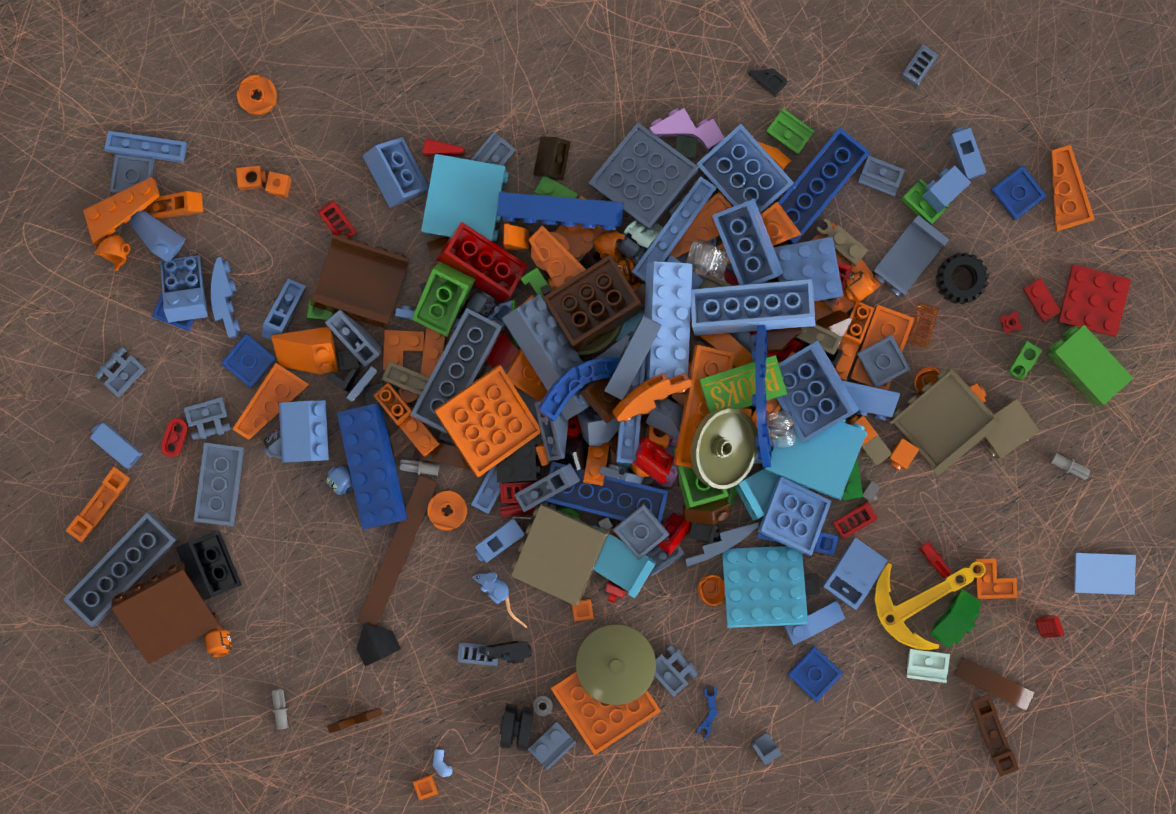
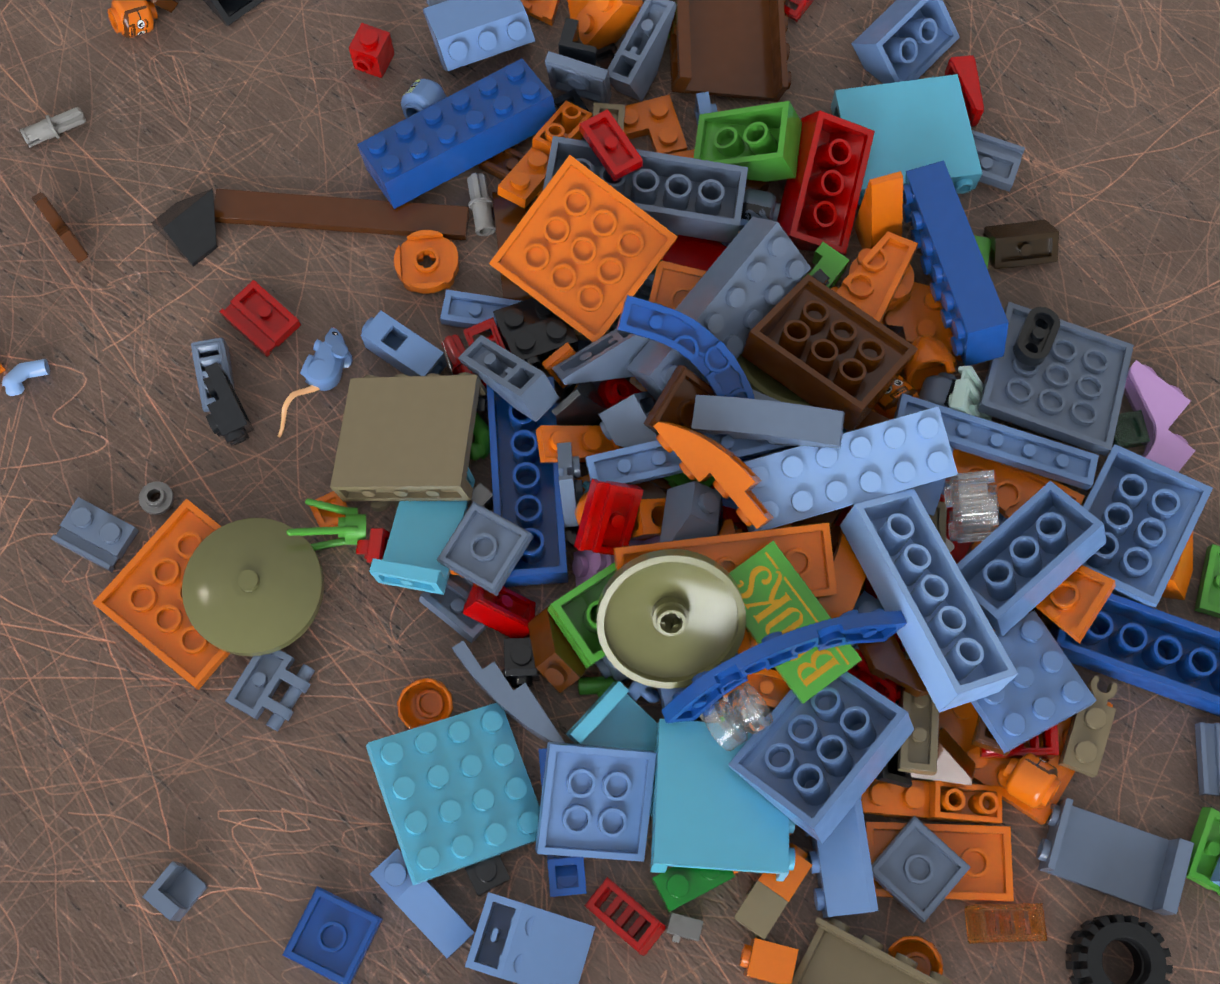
camera: 70 degrees right, 15 degrees down
(295, 502) = (371, 50): none -> red brick
(430, 384) = (610, 145): none -> red plate
(451, 618) = (260, 318): none -> red plate
(516, 727) = (105, 461): black wheel -> none
(597, 602) = (349, 528): none -> bright green plant
(619, 180) = (1036, 342): none -> black plate
(711, 714) = (216, 778): blue piece -> none

